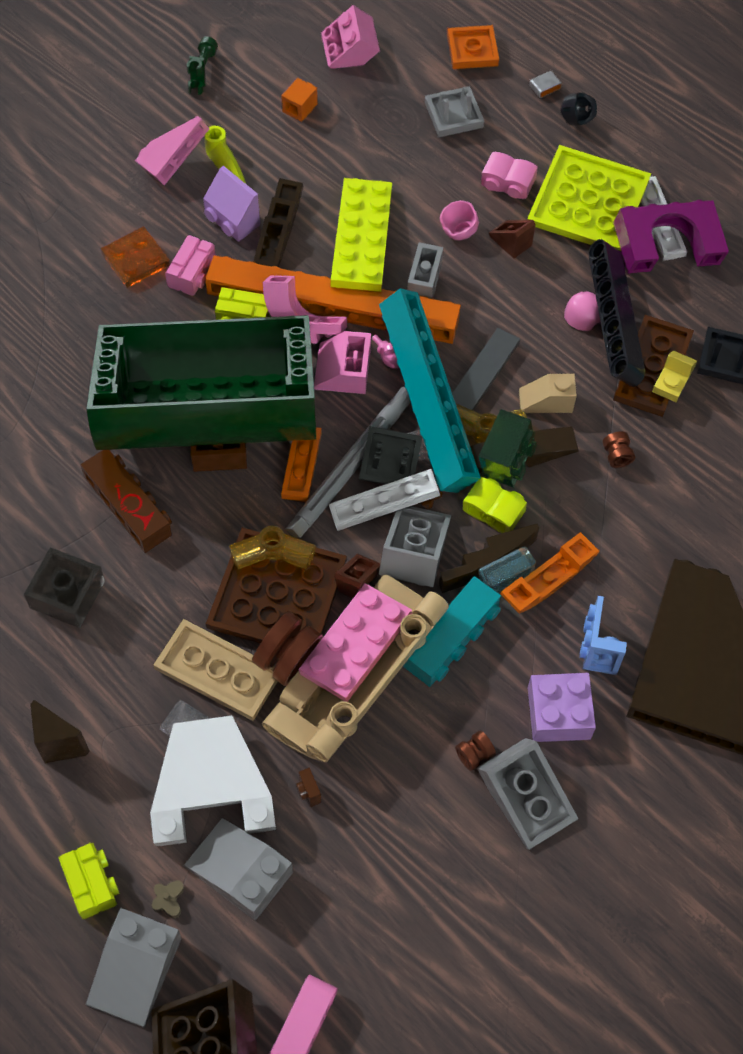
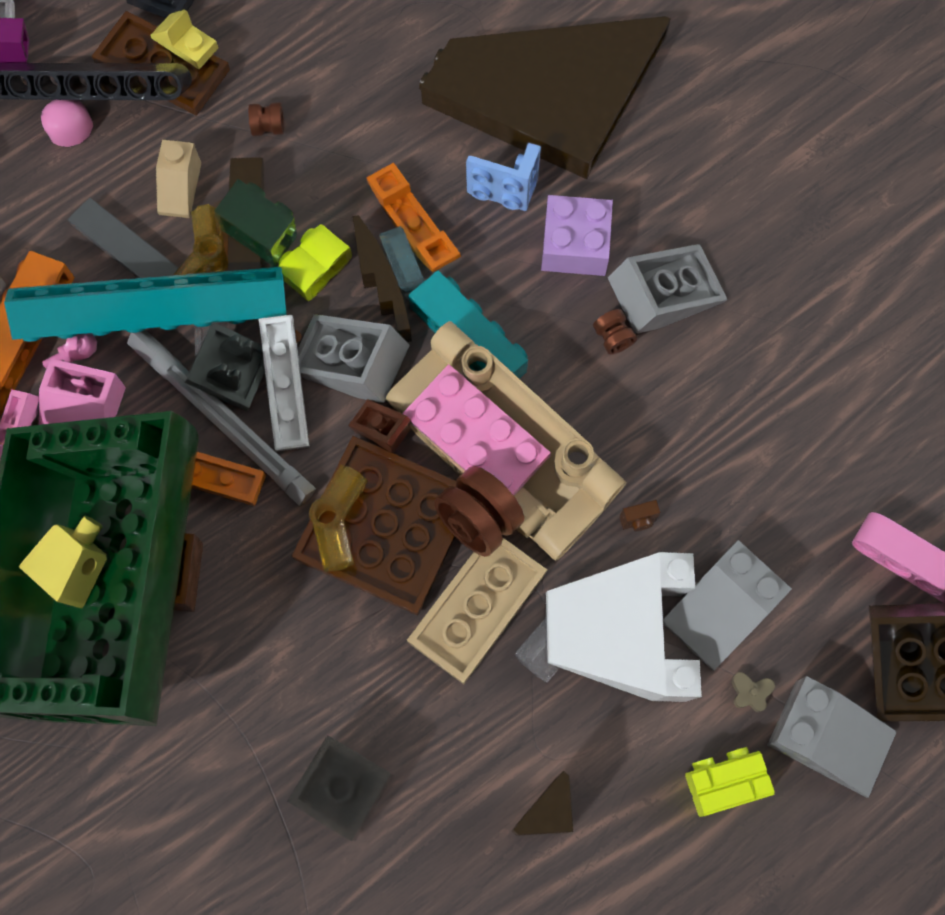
camera: 80 degrees left, 10 degrees up
(126, 499) = (222, 700): reddish brown brick -> none
(212, 374) = (67, 562): none -> light yellow torso

